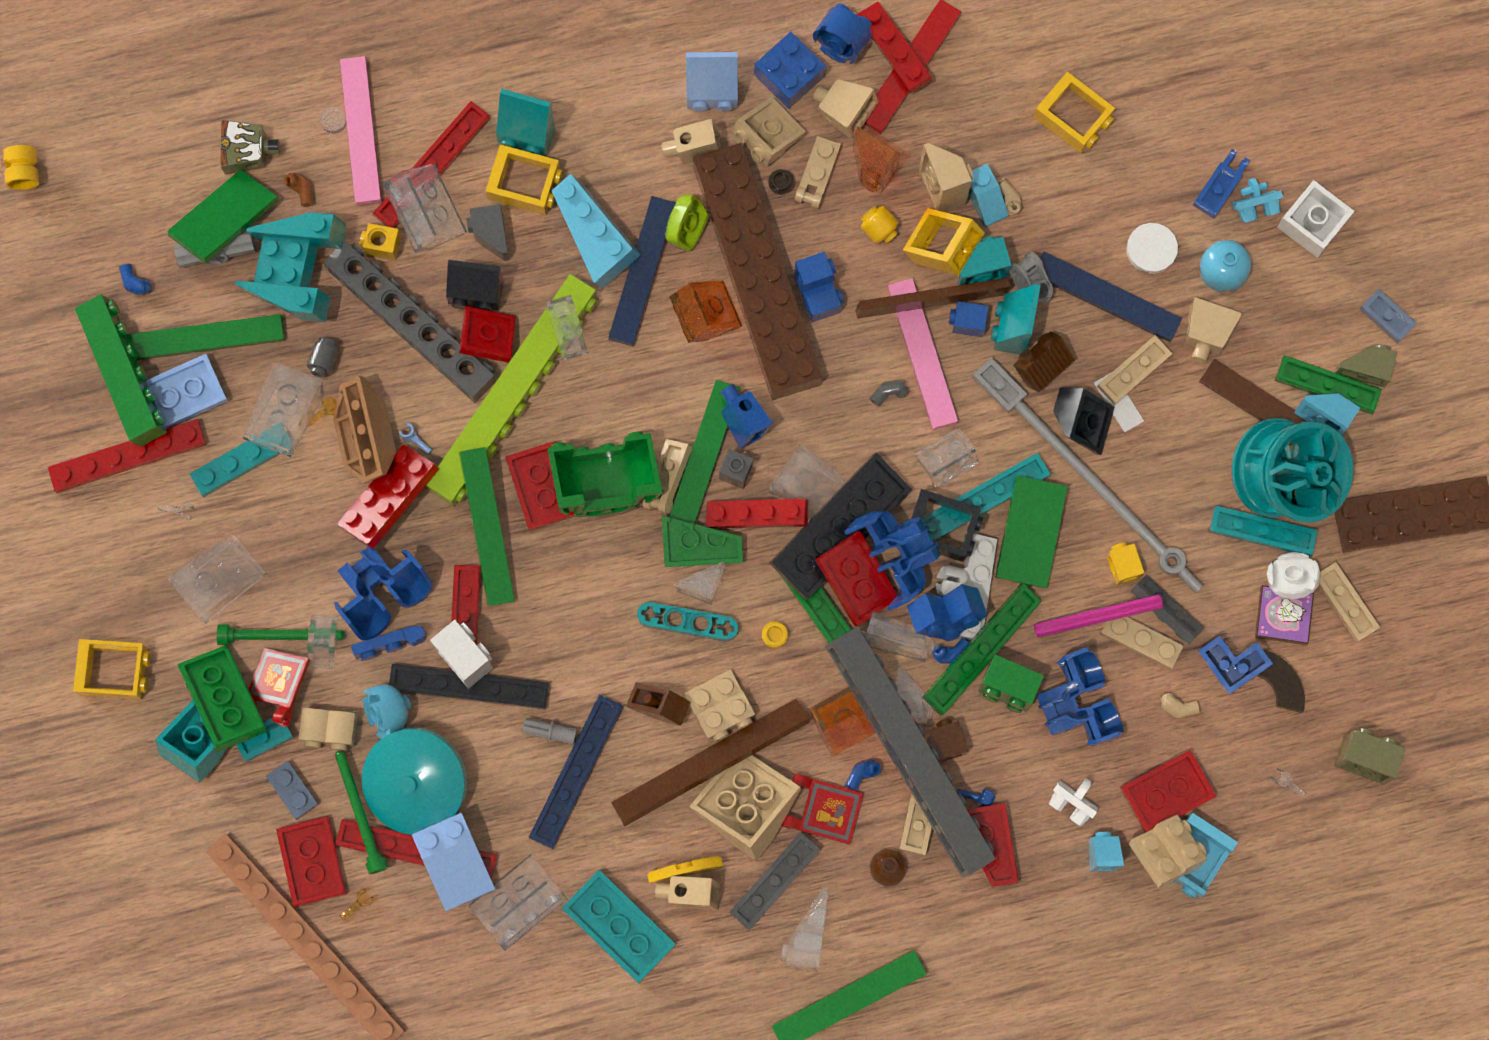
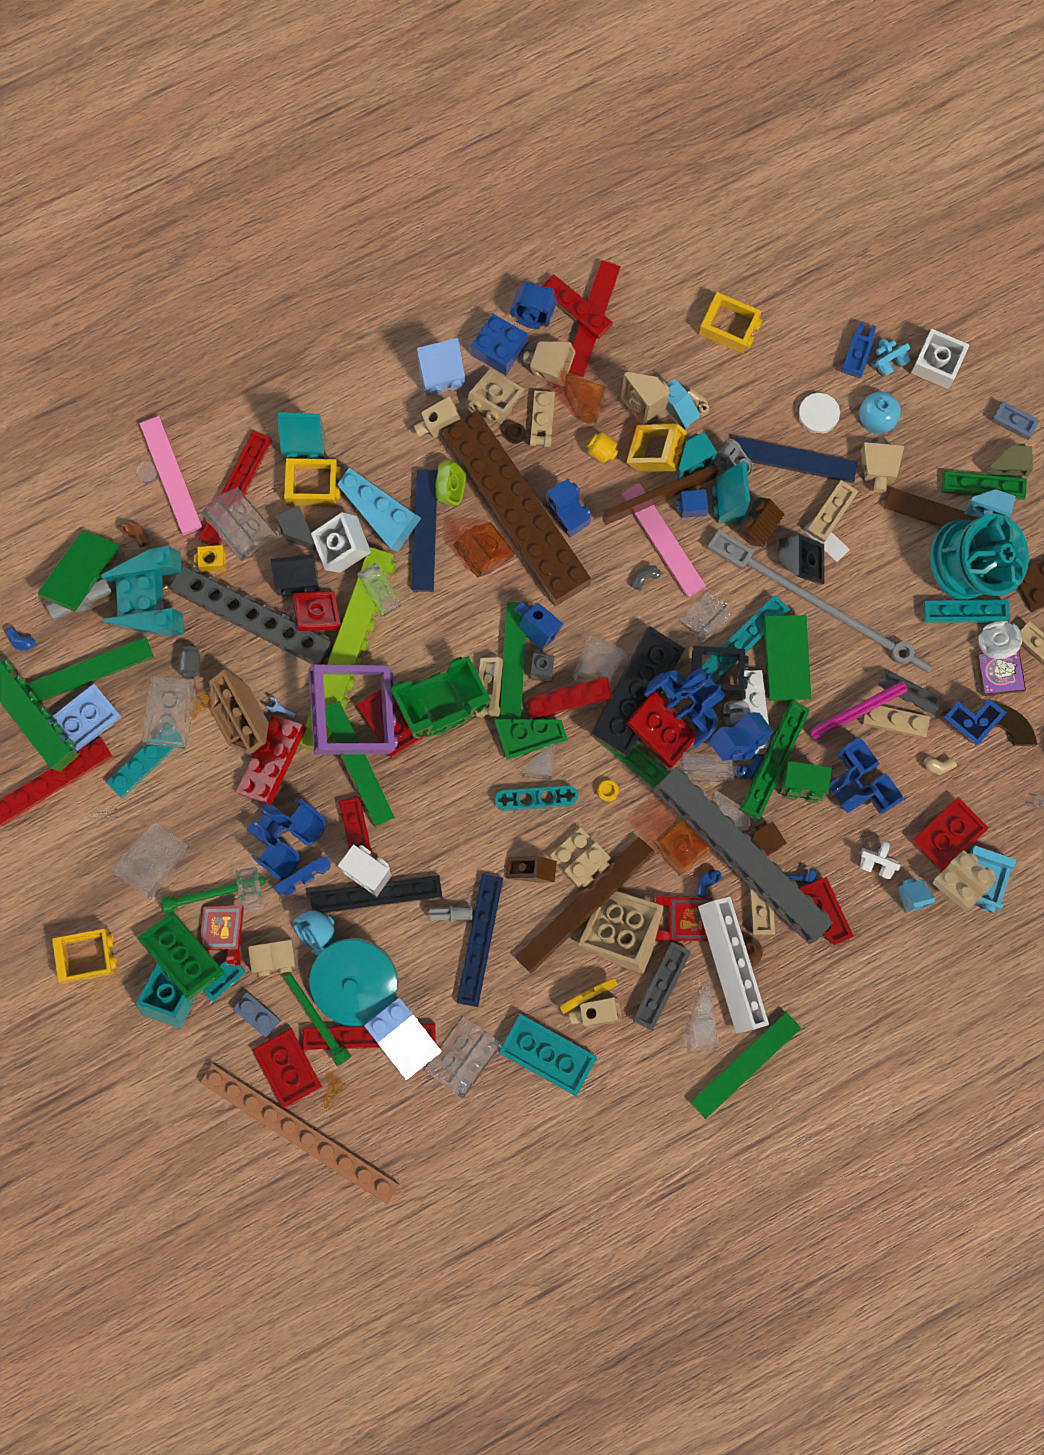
camera: 15 degrees left, 0 degrees up
(244, 147) = (81, 511): torso -> none
(455, 456) = (320, 743): none -> medium lavender window
(537, 260) = (340, 542): none -> white brick
(865, 878) = (733, 965): none -> white brick
(1124, 563) = (866, 663): yellow brick -> none

